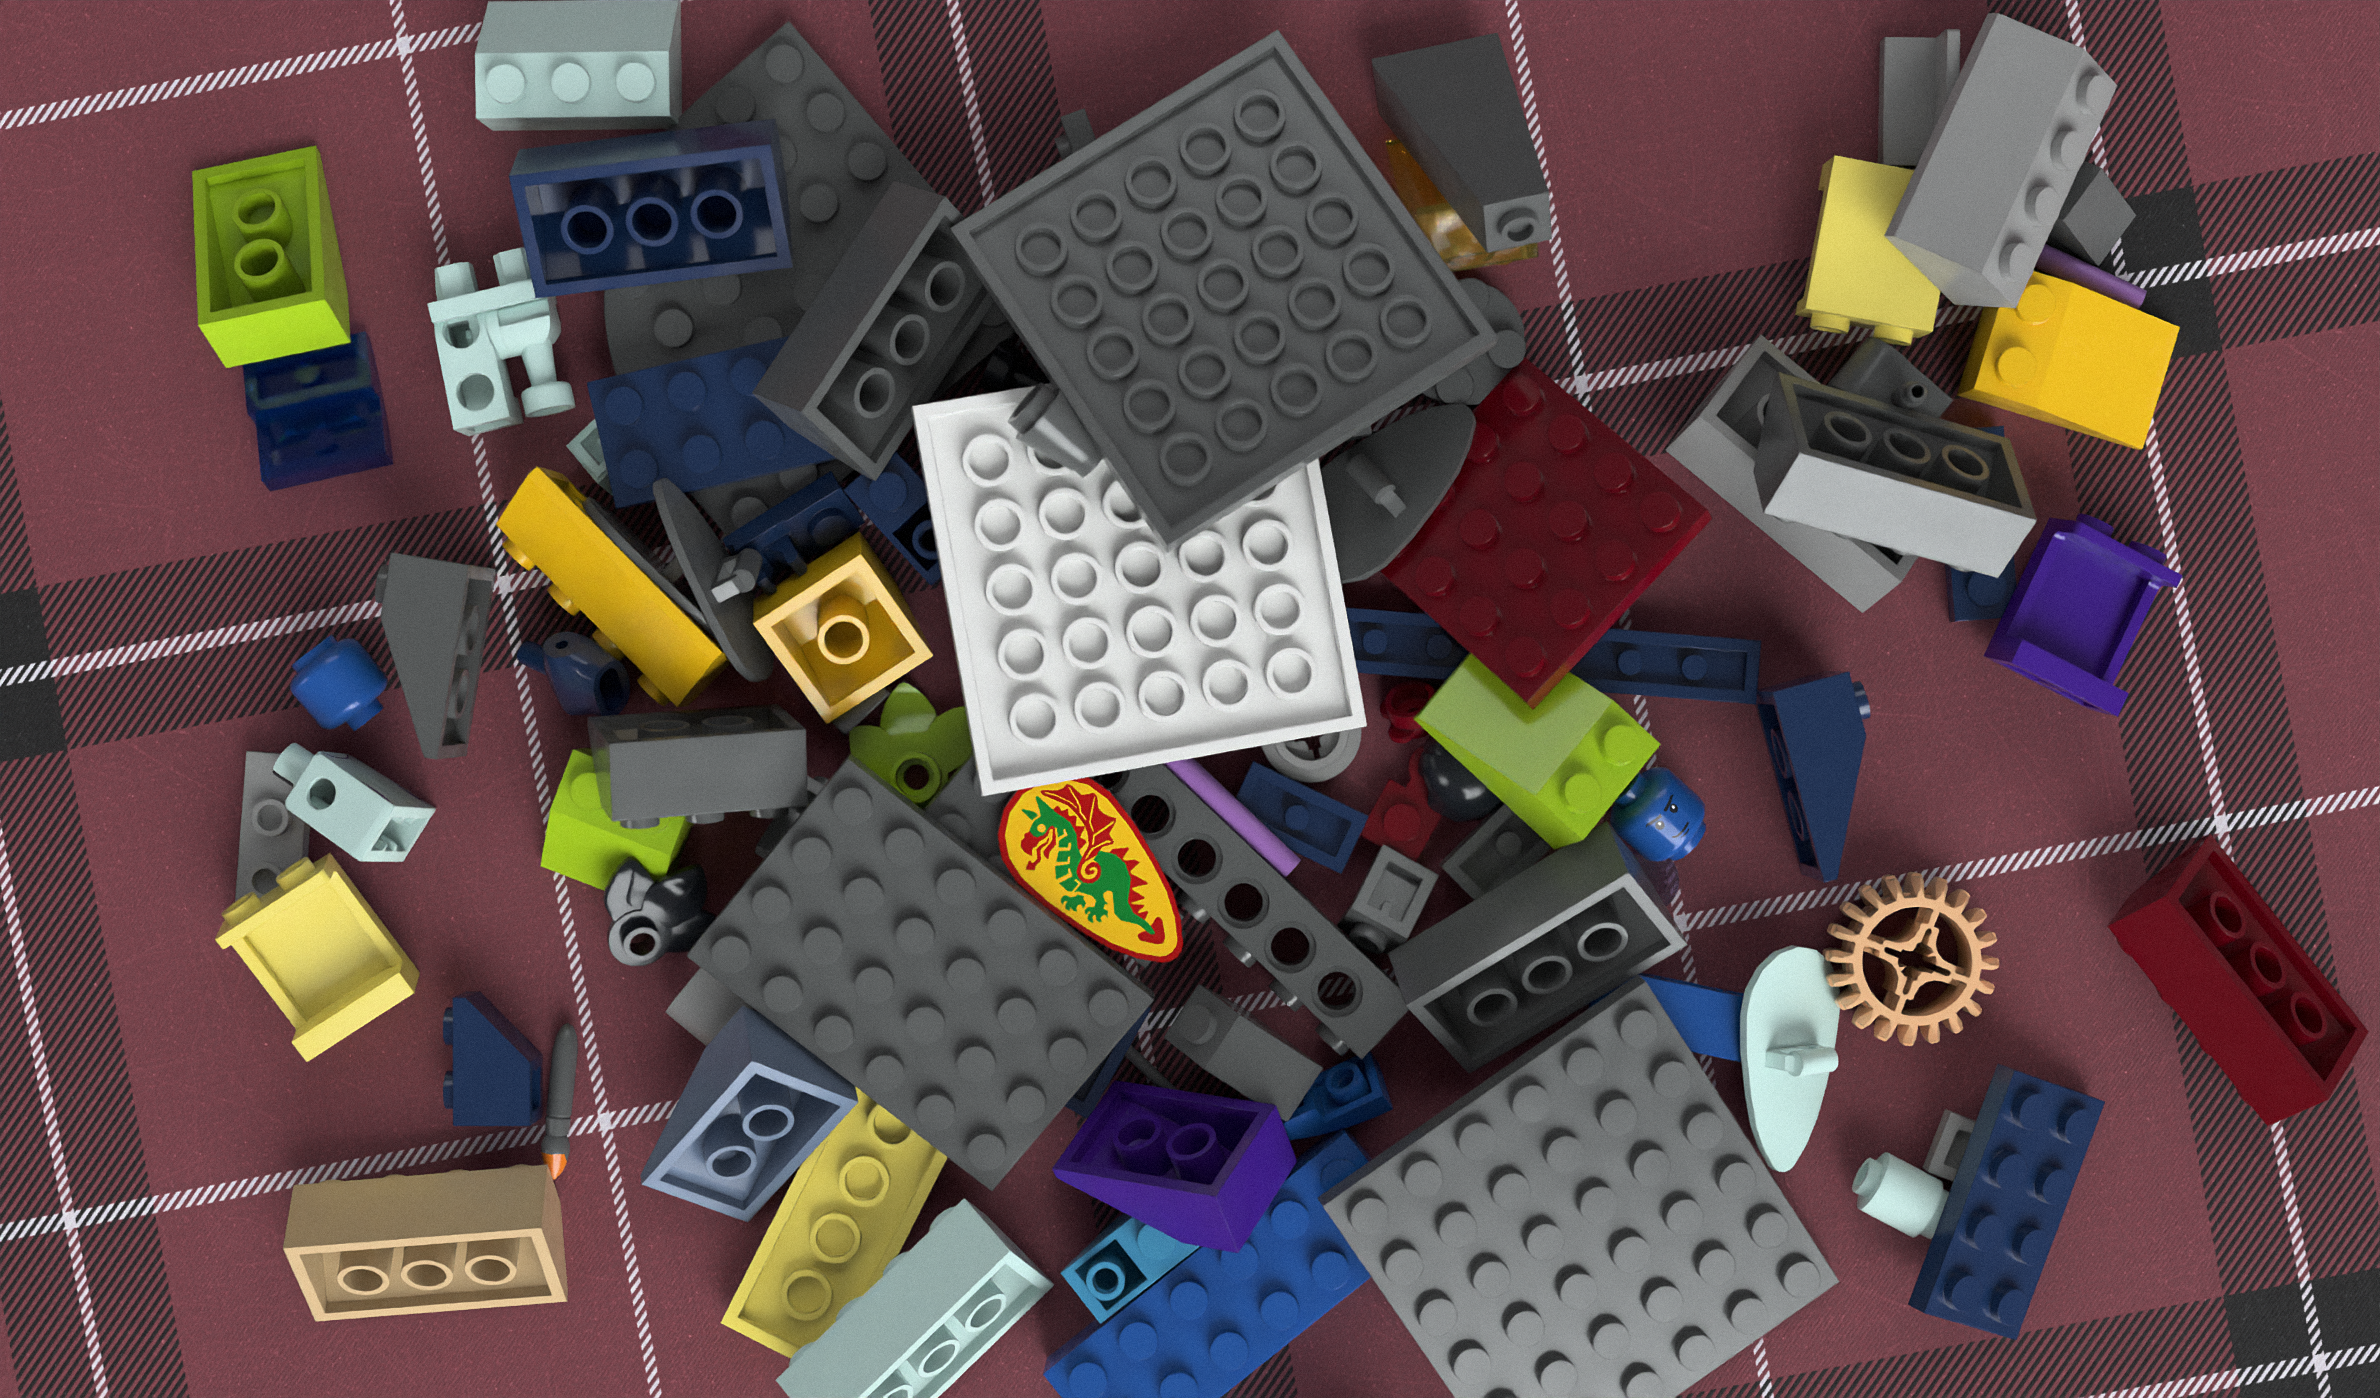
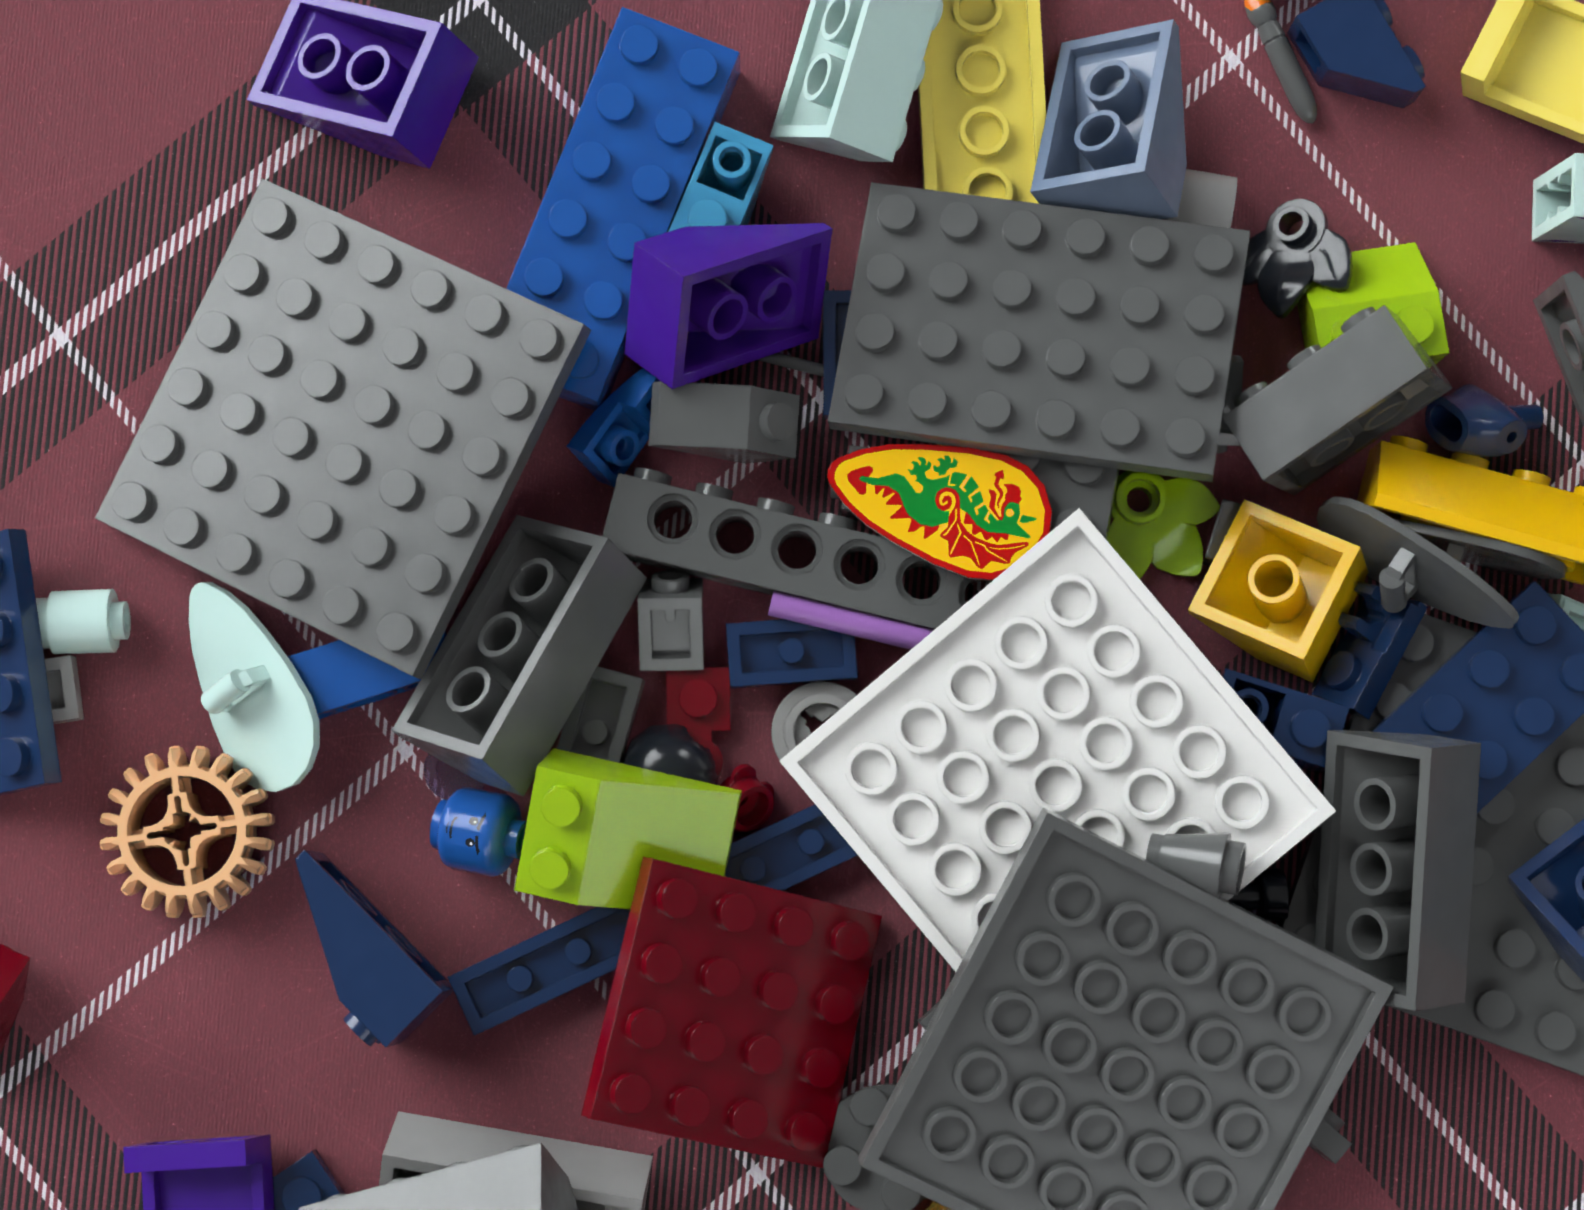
camera: 150 degrees right, 5 degrees down
(1392, 484) = (875, 985): dark grey shield -> none

